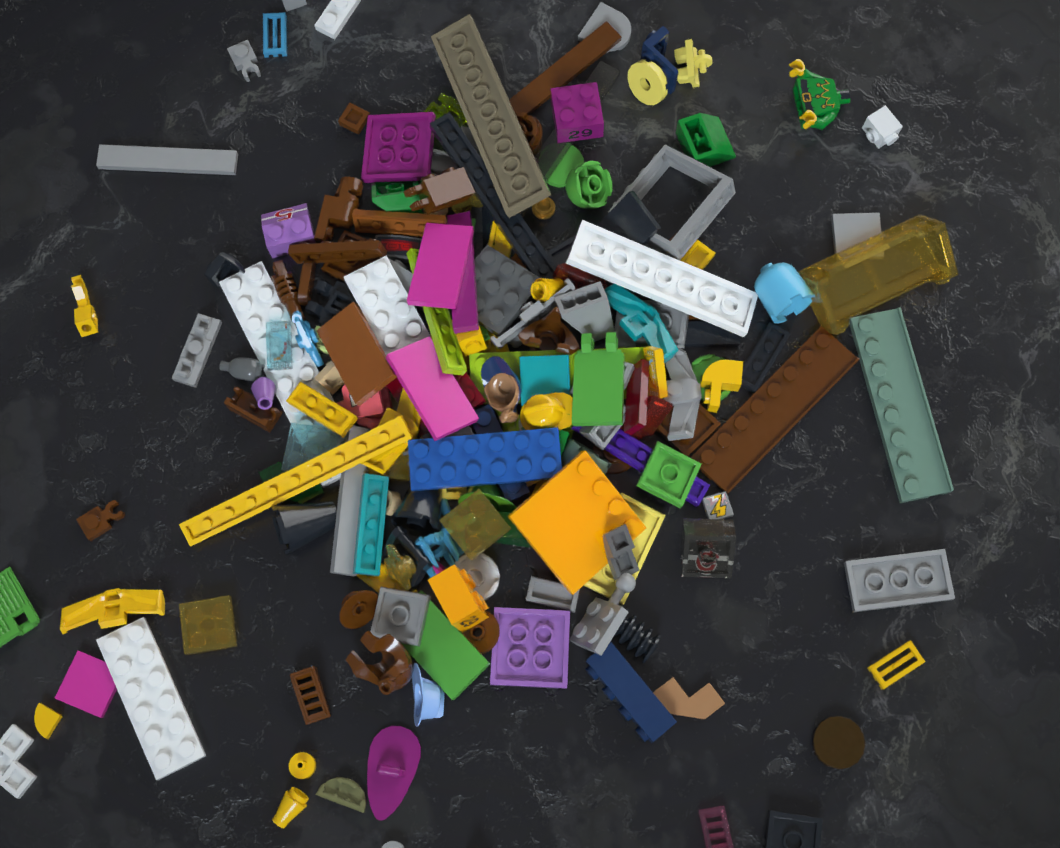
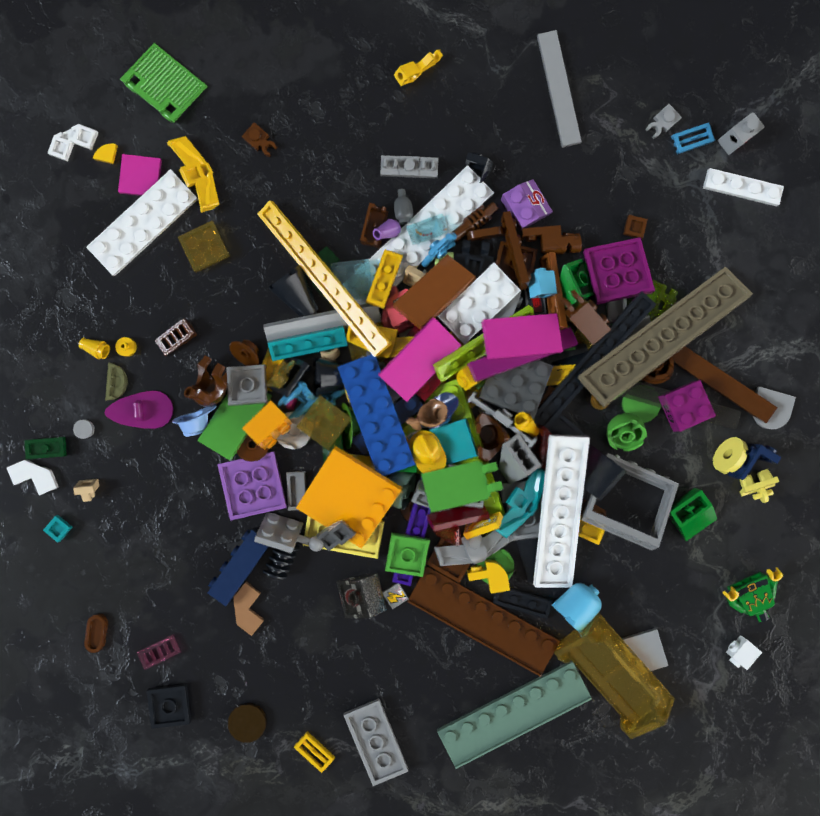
camera: 70 degrees right, 15 degrees up
(387, 229) = (542, 284): none -> medium azure brick

